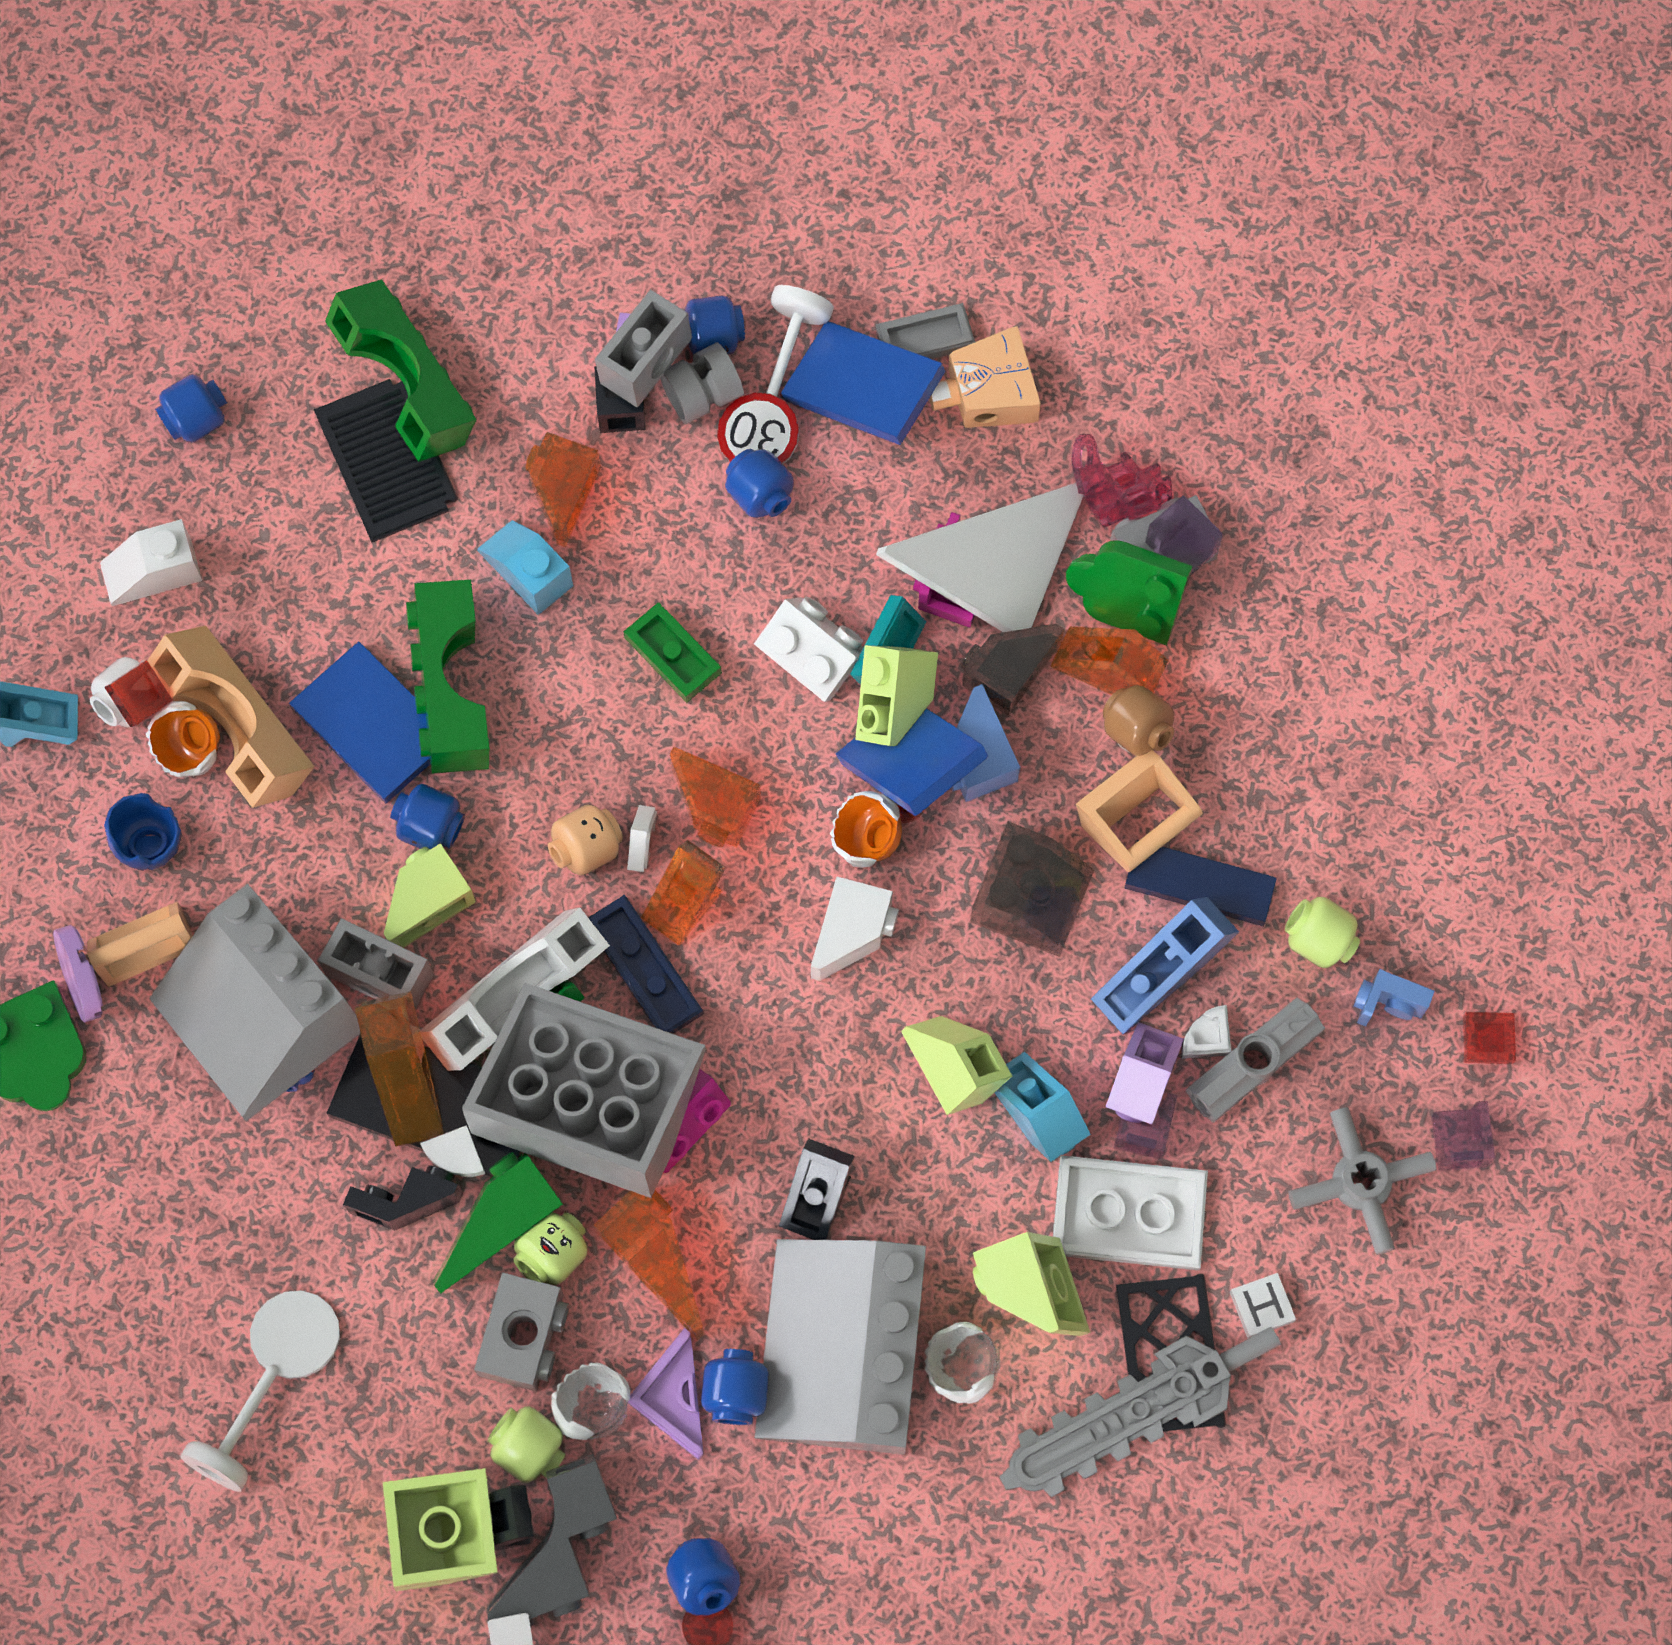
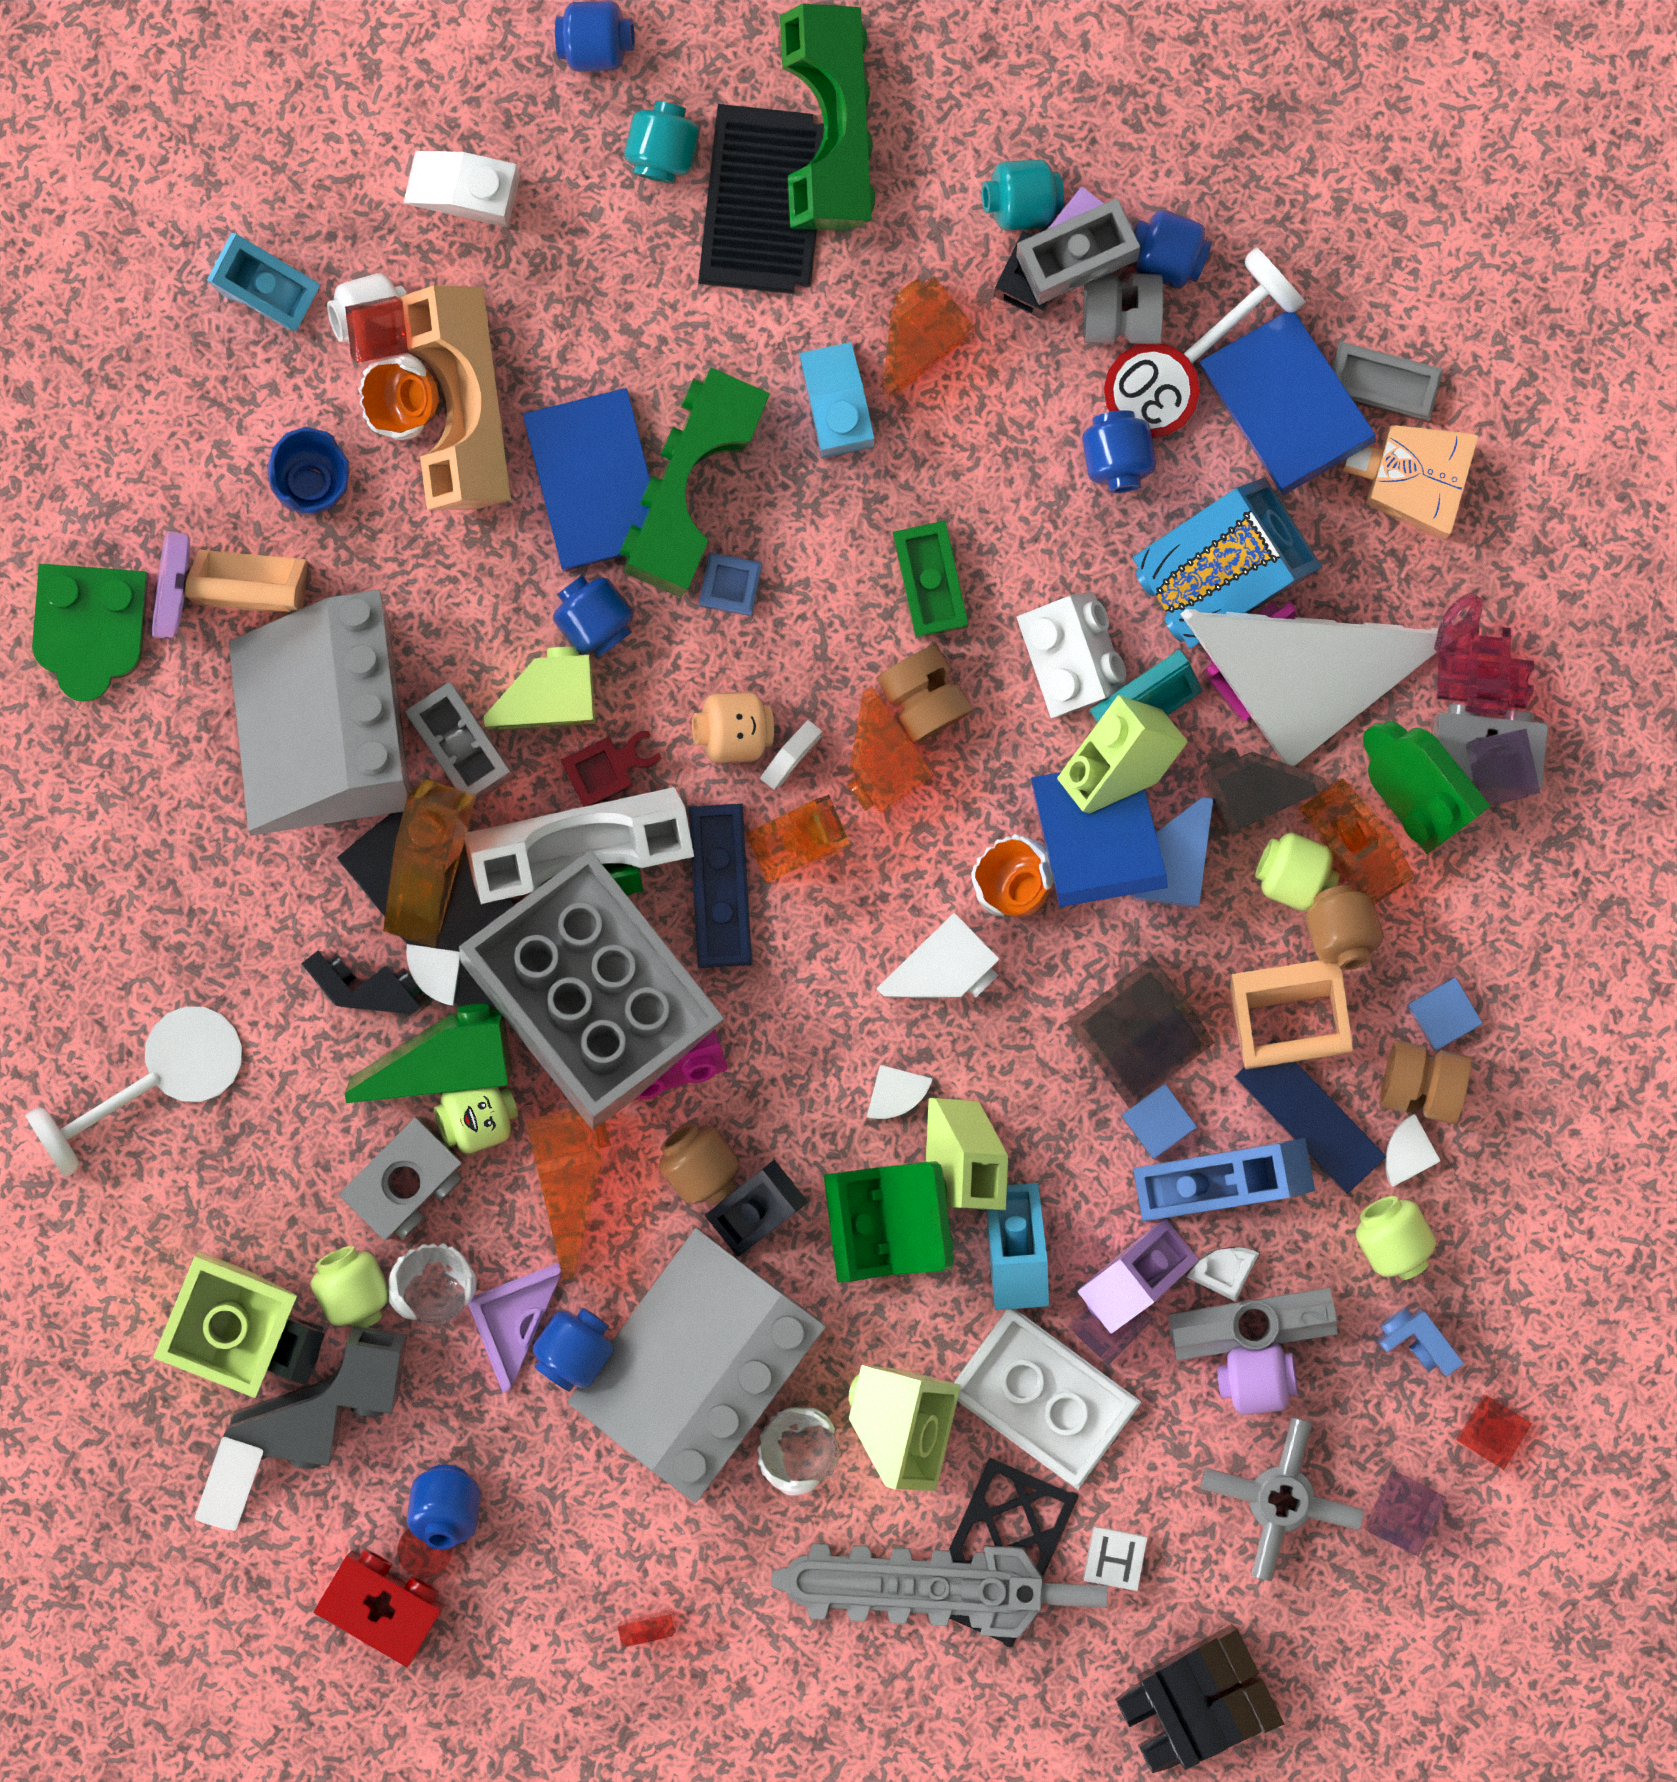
camera: 30 degrees right, 15 degrees up
(286, 454) = (661, 142): none -> teal head
(502, 929) = (602, 770): none -> dark red plate
(521, 741) = (730, 584): none -> medium blue tile
(576, 345) = (1023, 195): none -> teal head
(715, 732) = (924, 693): none -> medium nougat wheel
(751, 1184) = (699, 1164): none -> medium nougat head
(873, 1044) = (896, 1092): none -> white tile
(880, 506) = (1226, 558): none -> dark azure slope
(926, 1579) = (647, 1628): none -> clear red tile
(928, 1138) = (889, 1221): none -> green bracket
(1076, 706) = (1296, 870): none -> yellowish green head
(1088, 951) = (1158, 1121): none -> medium blue tile
(1253, 751) = (1444, 1014): none -> medium blue tile
(1270, 804) = (1425, 1082): none -> medium nougat wheel
(1286, 1098) = (1258, 1379): none -> lavender head
(1291, 866) = (1408, 1151): none -> white tile
(1396, 1394) = (1181, 1700): none -> black hips

